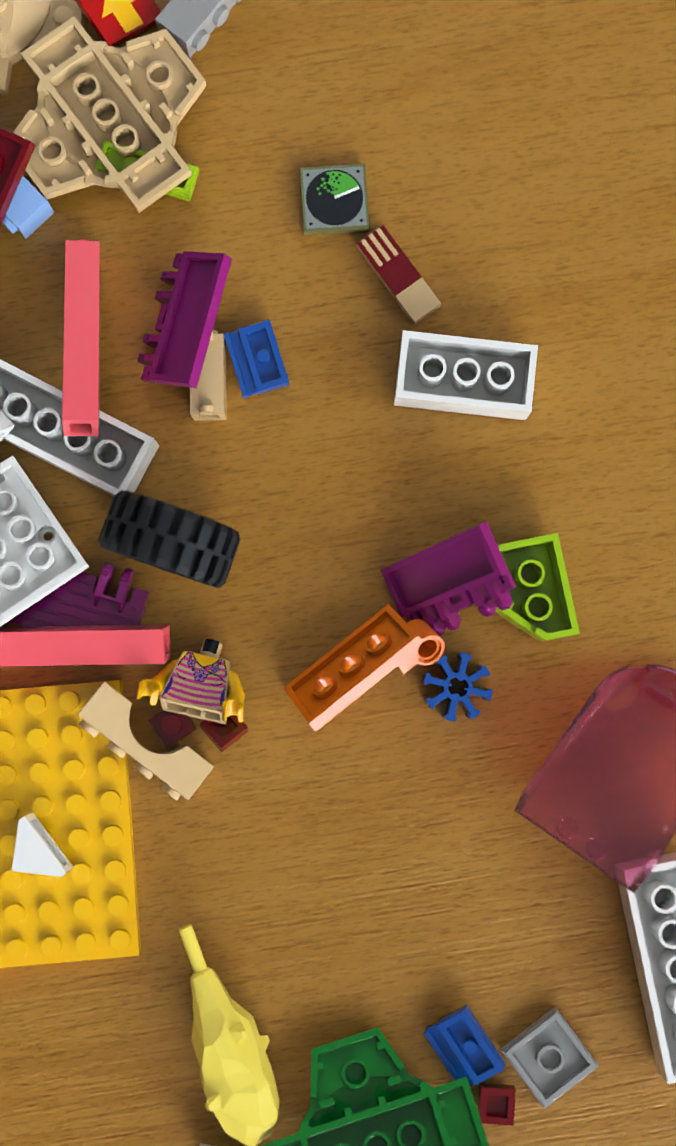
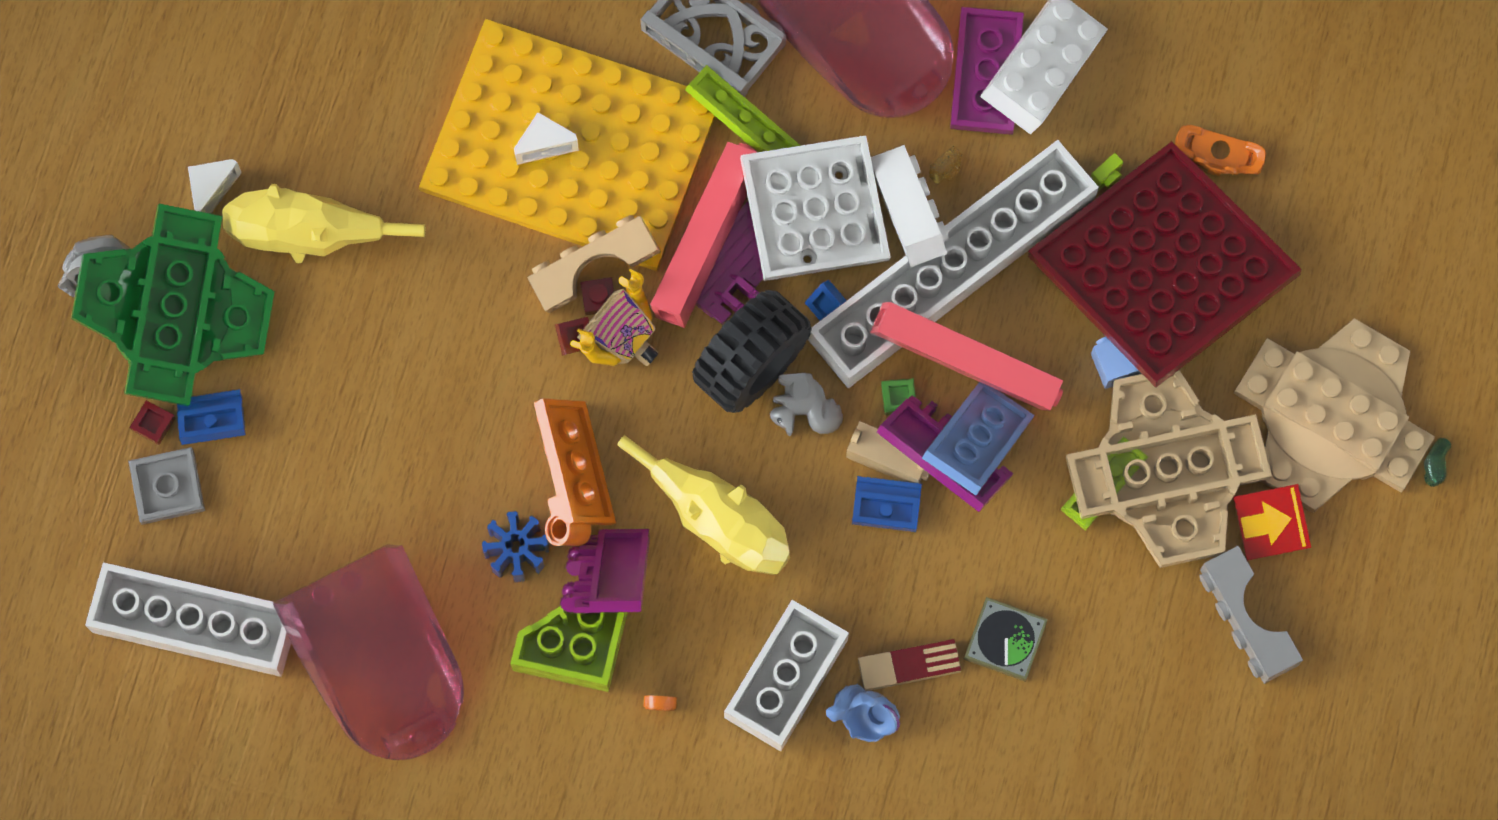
camera: 115 degrees right, 10 degrees down
(84, 500) = (824, 300): none -> blue plate
(145, 397) = (895, 393): none -> bright green tile
(159, 292) = (978, 437): none -> medium blue plate
(186, 478) = (805, 397): none -> light grey animal
(339, 506) = (719, 513): none -> light yellow piece
(464, 291) = (864, 713): none -> medium blue hair
(541, 482) = (661, 703): none -> orange tile

